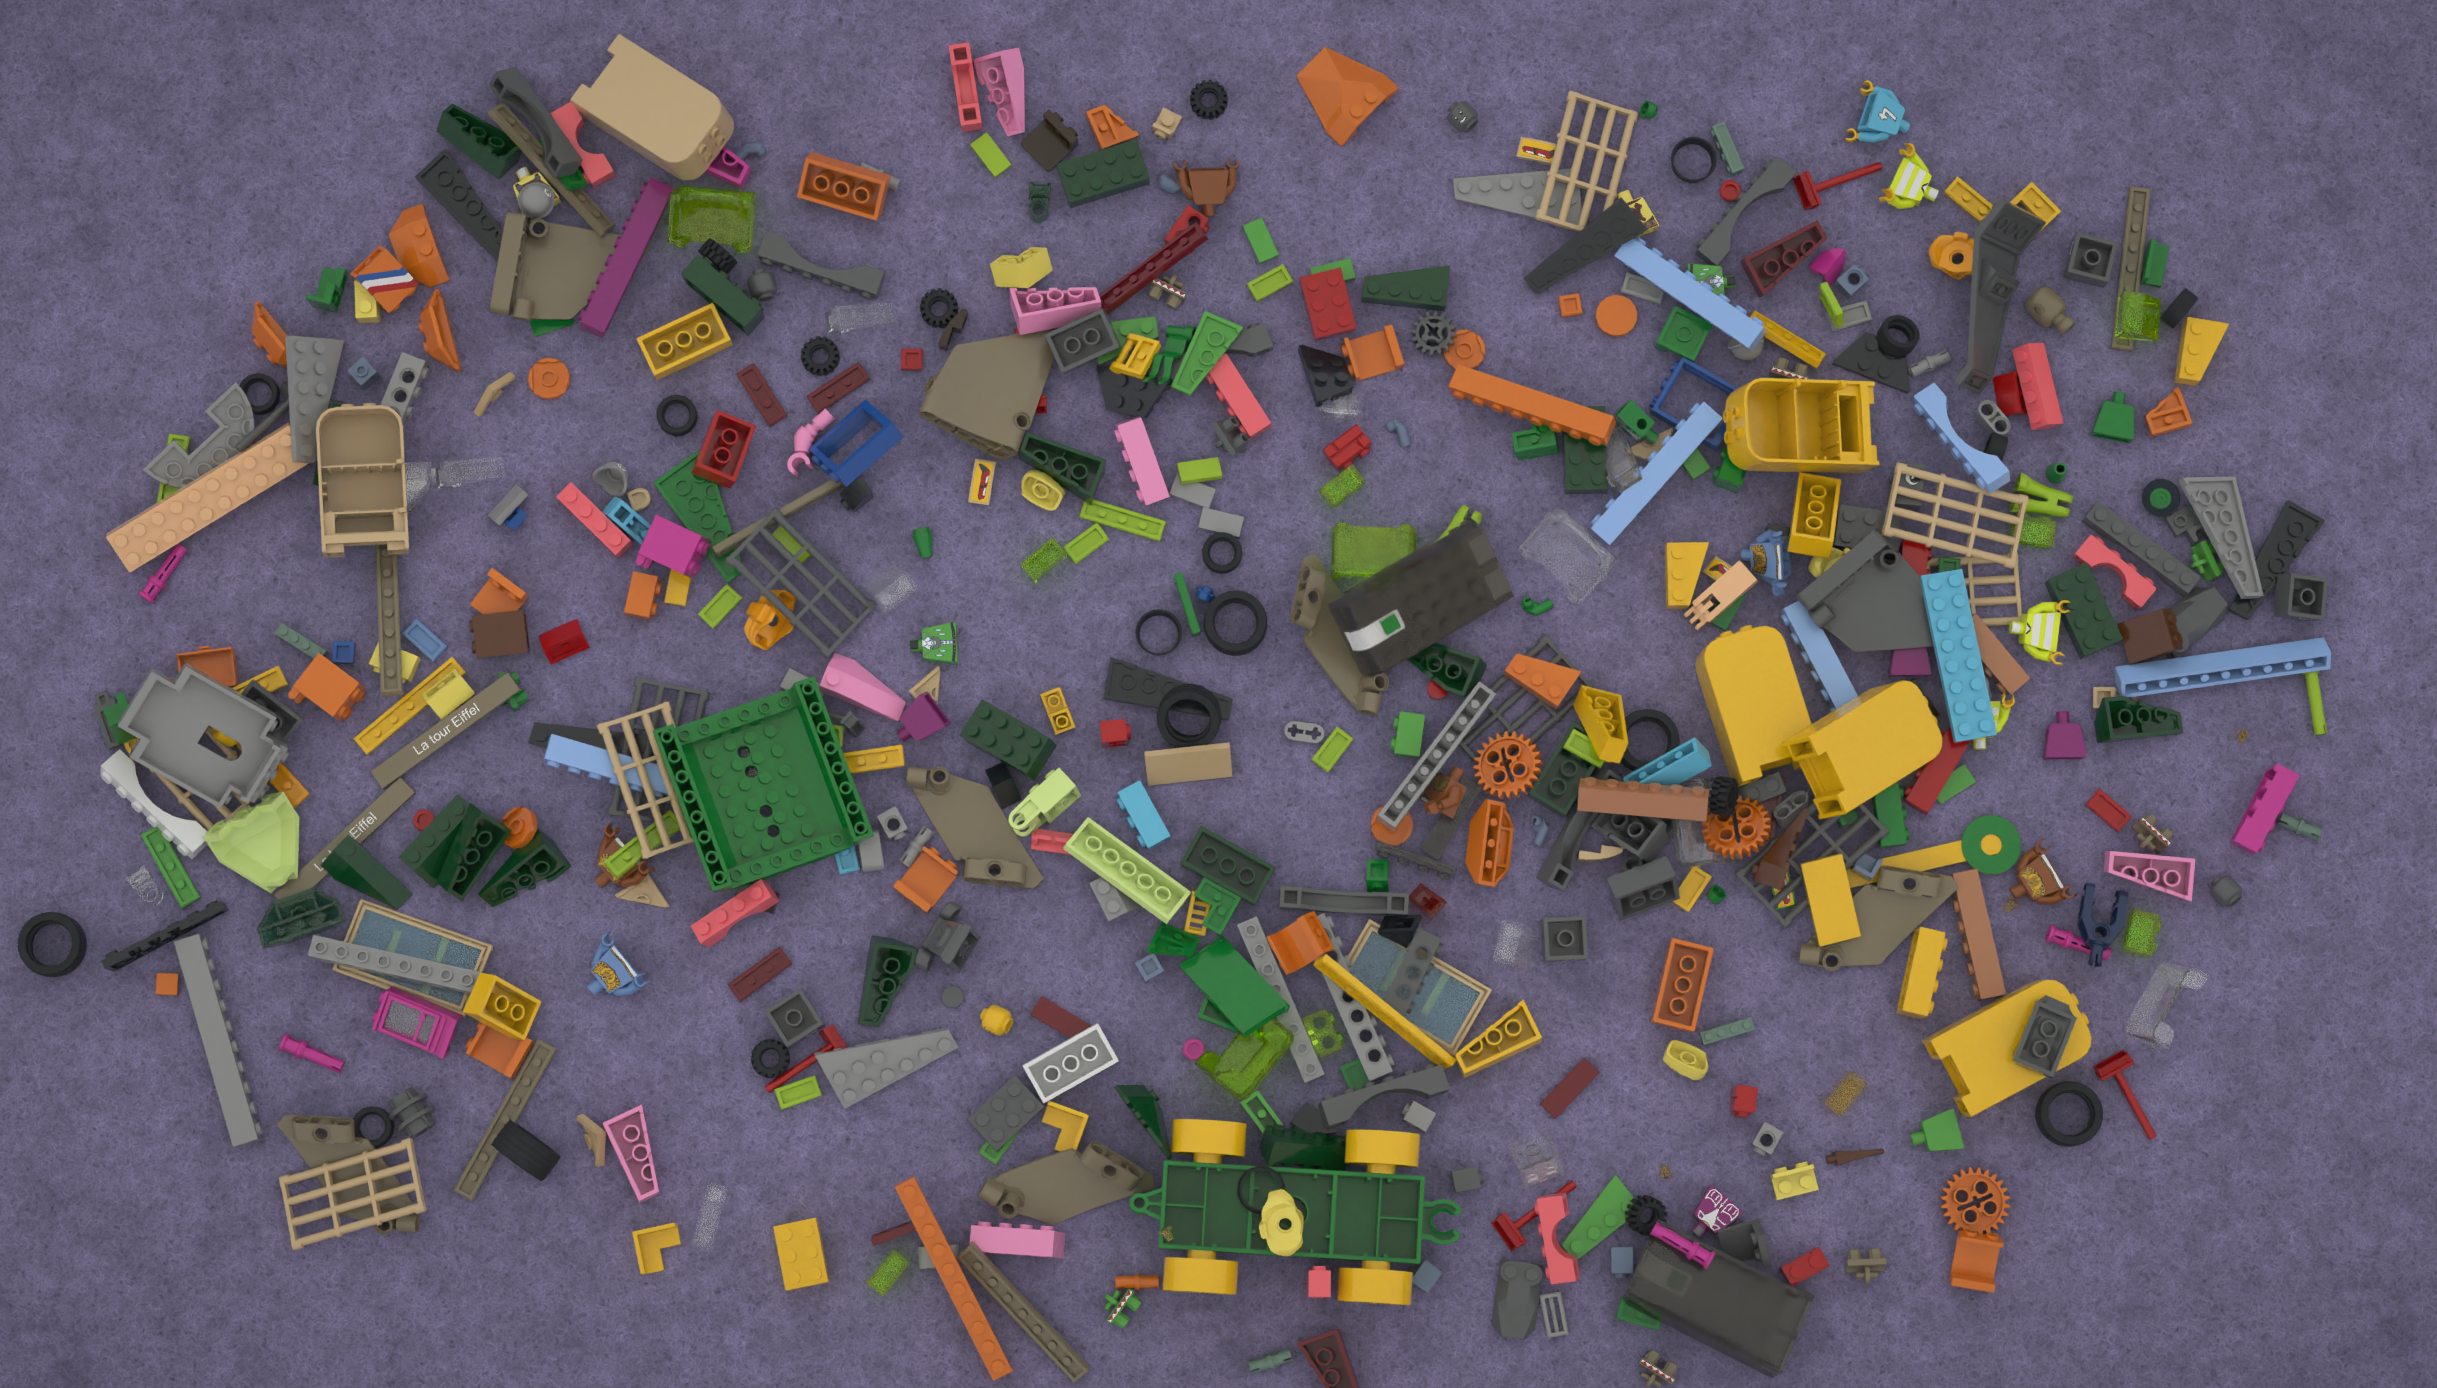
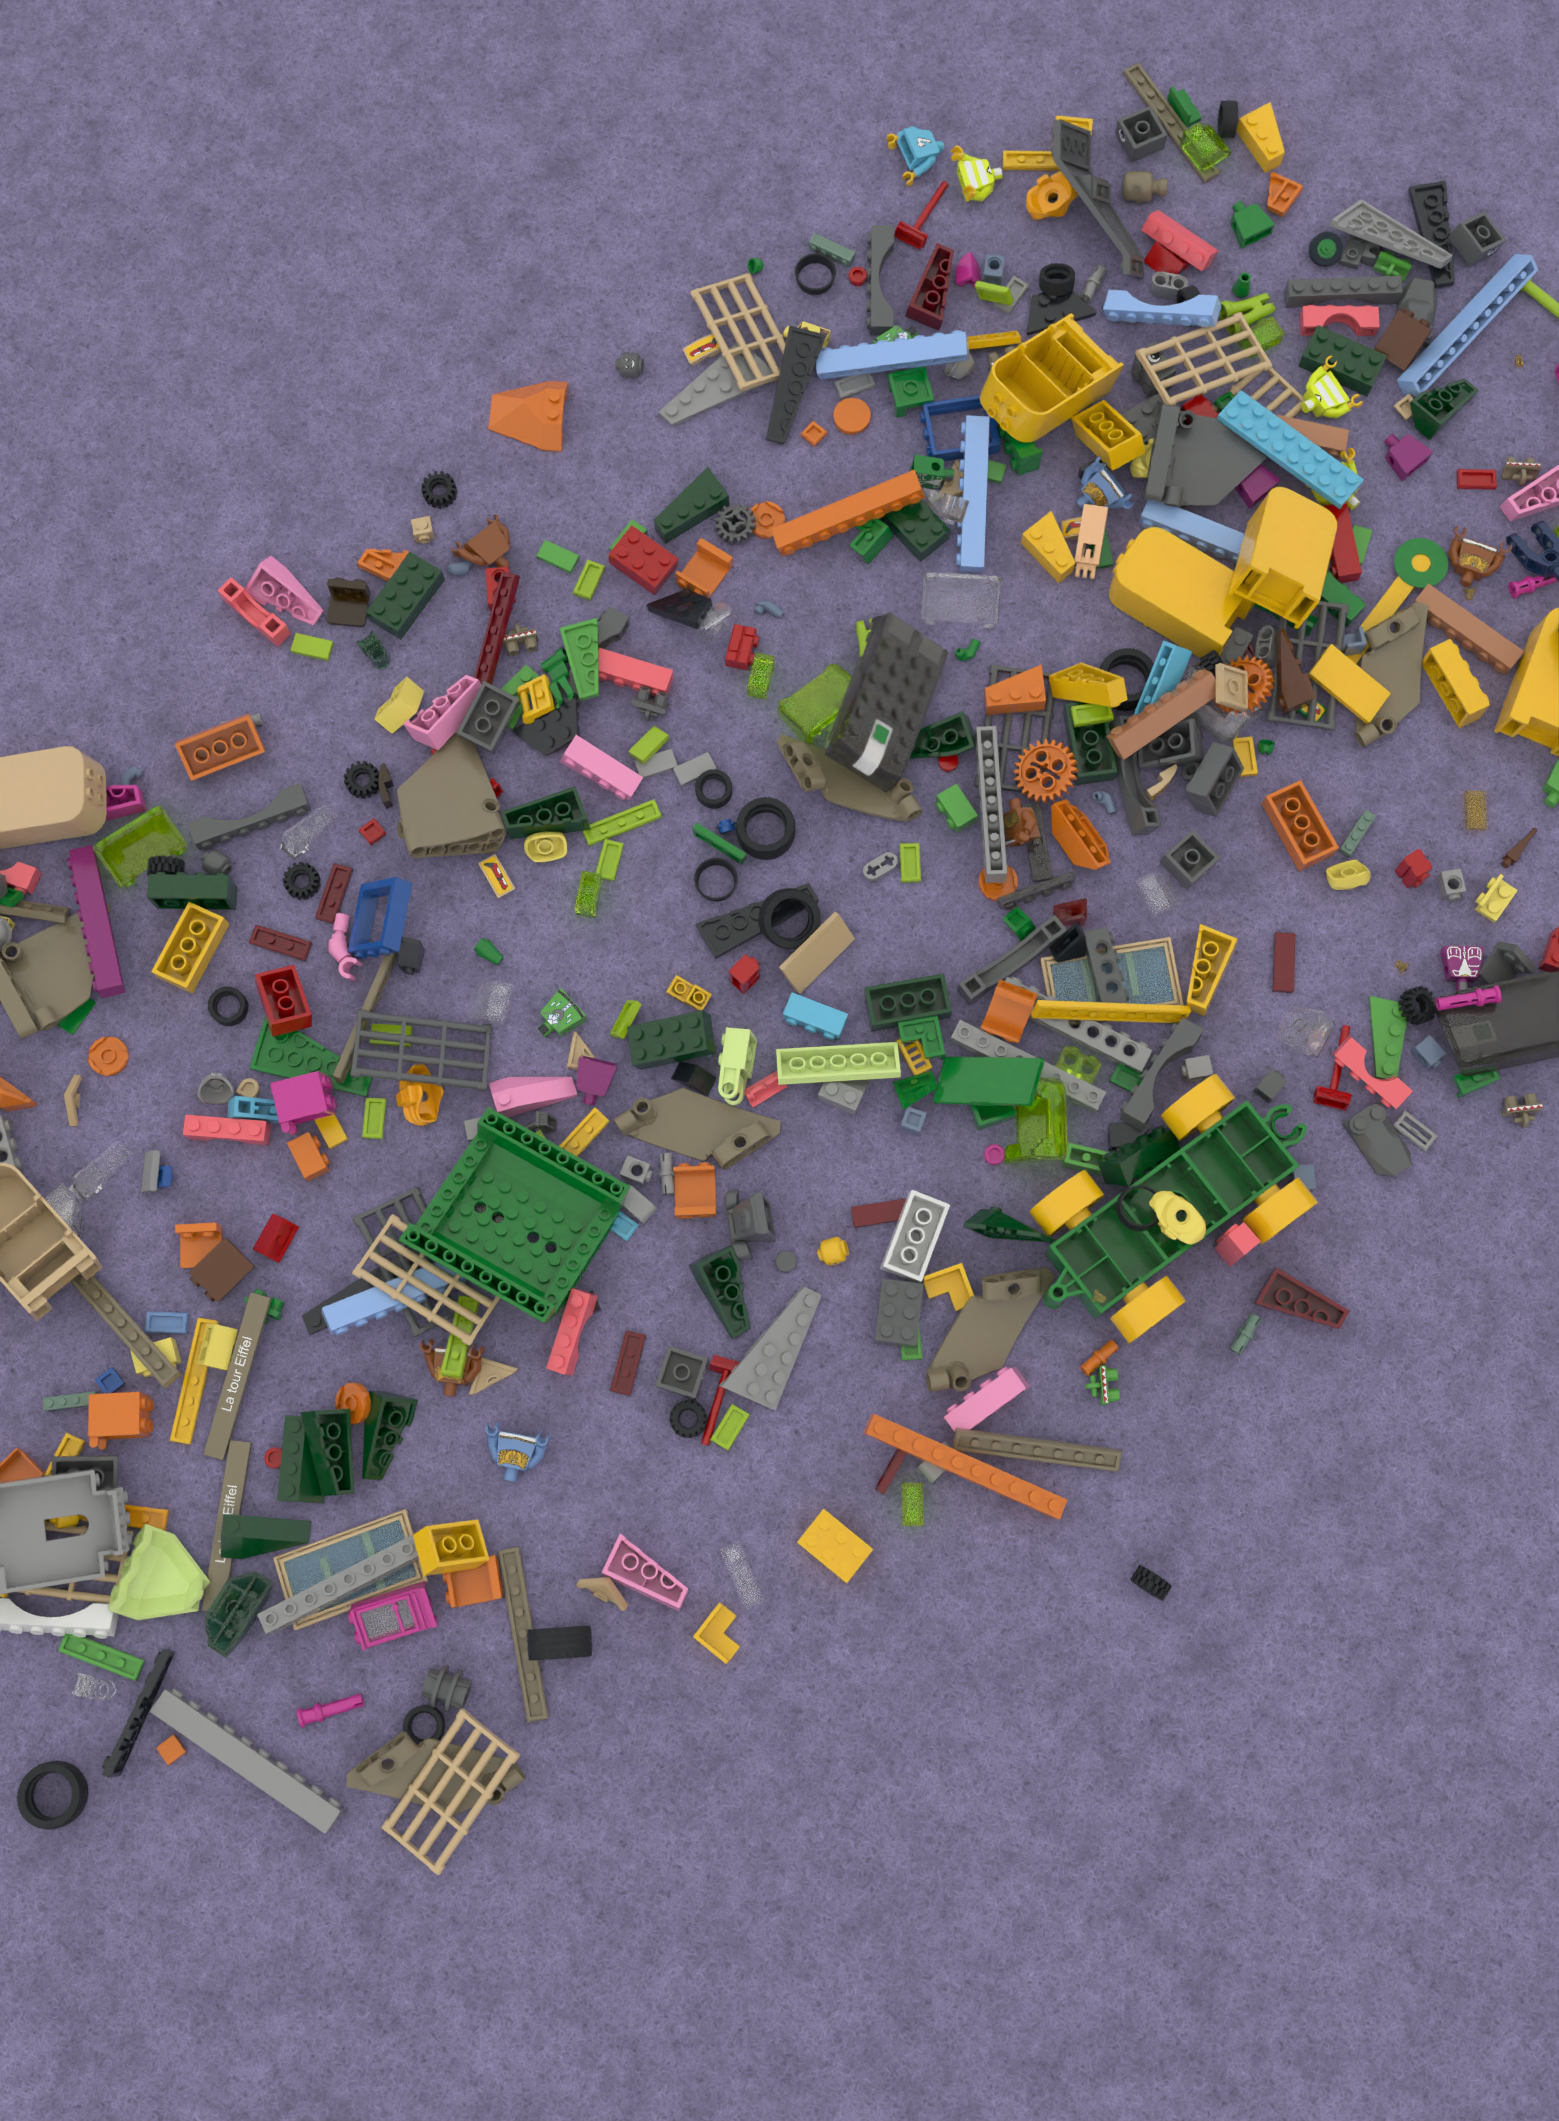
camera: 35 degrees left, 5 degrees down
(987, 690) = (625, 1019): none -> lime tile
(1718, 823) = (1231, 687): none -> tan tile

